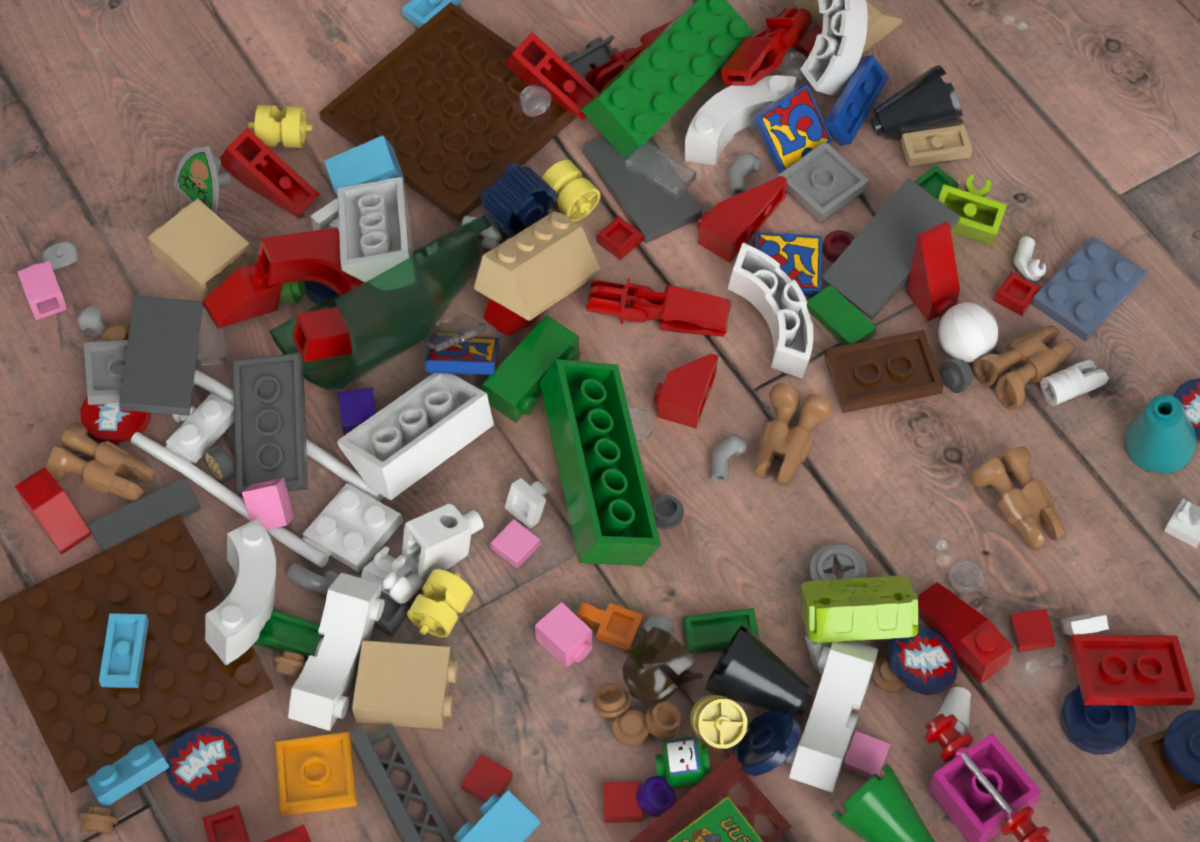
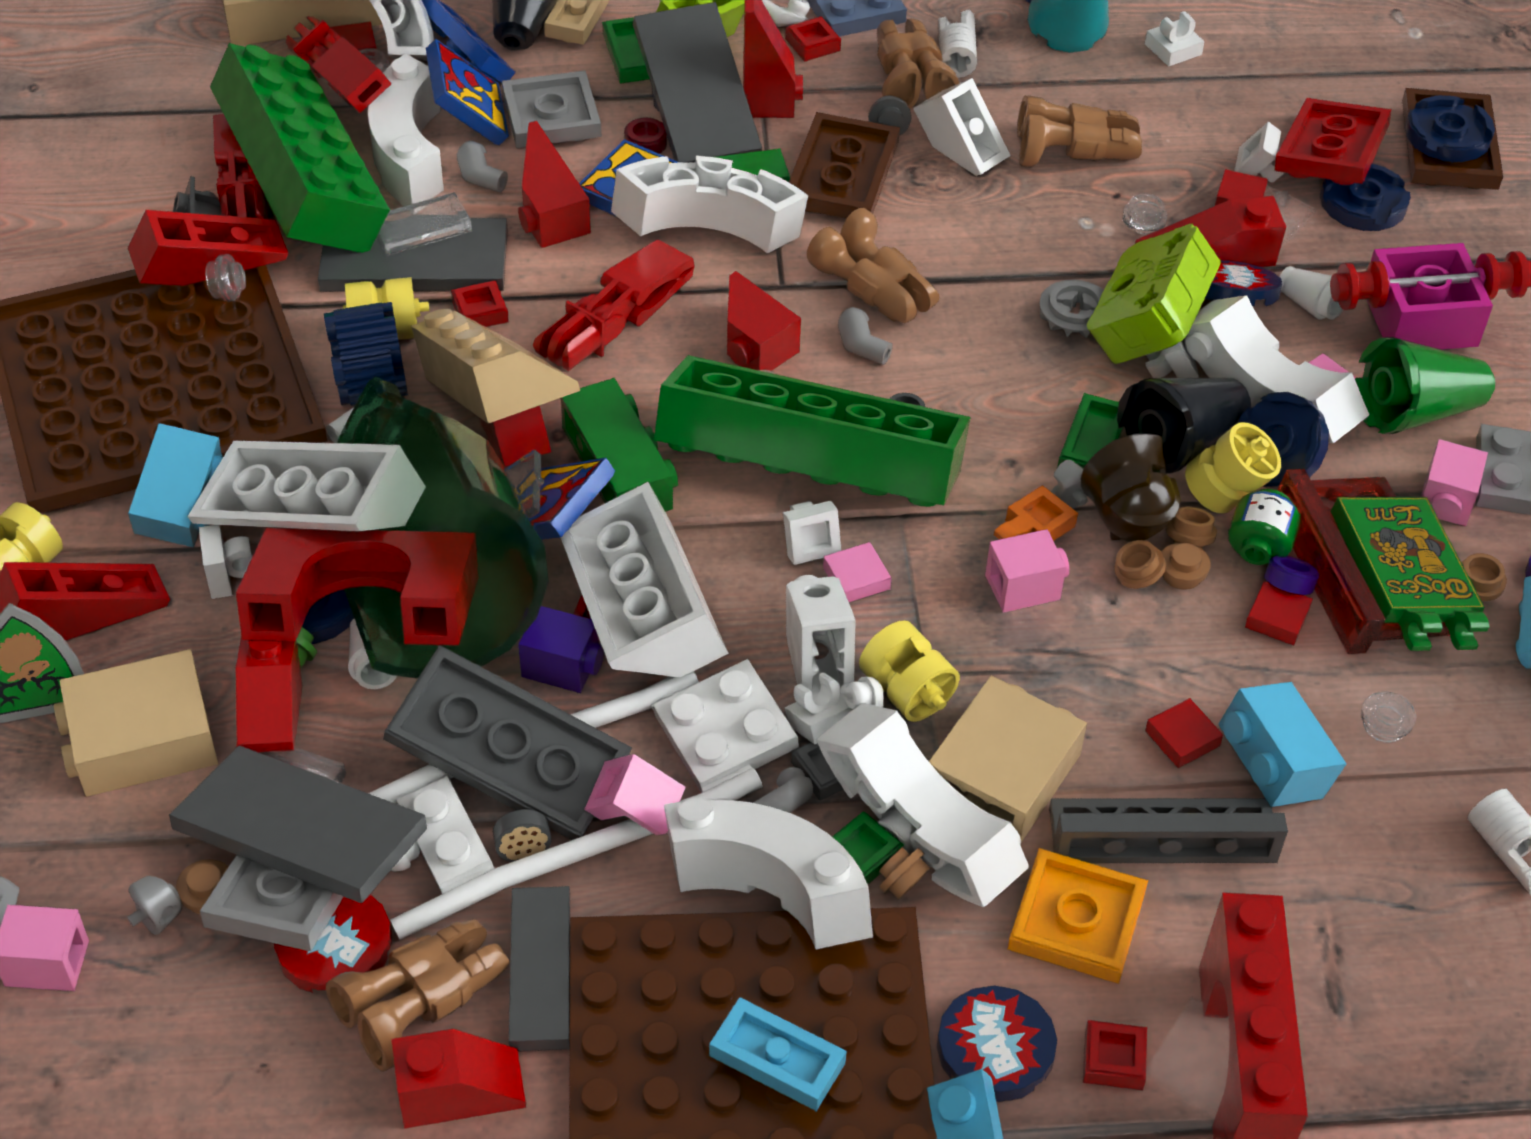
camera: 65 degrees left, 10 degrees down
(968, 331) = (849, 76): white piece -> none
(972, 426) = (962, 128): none -> white slope

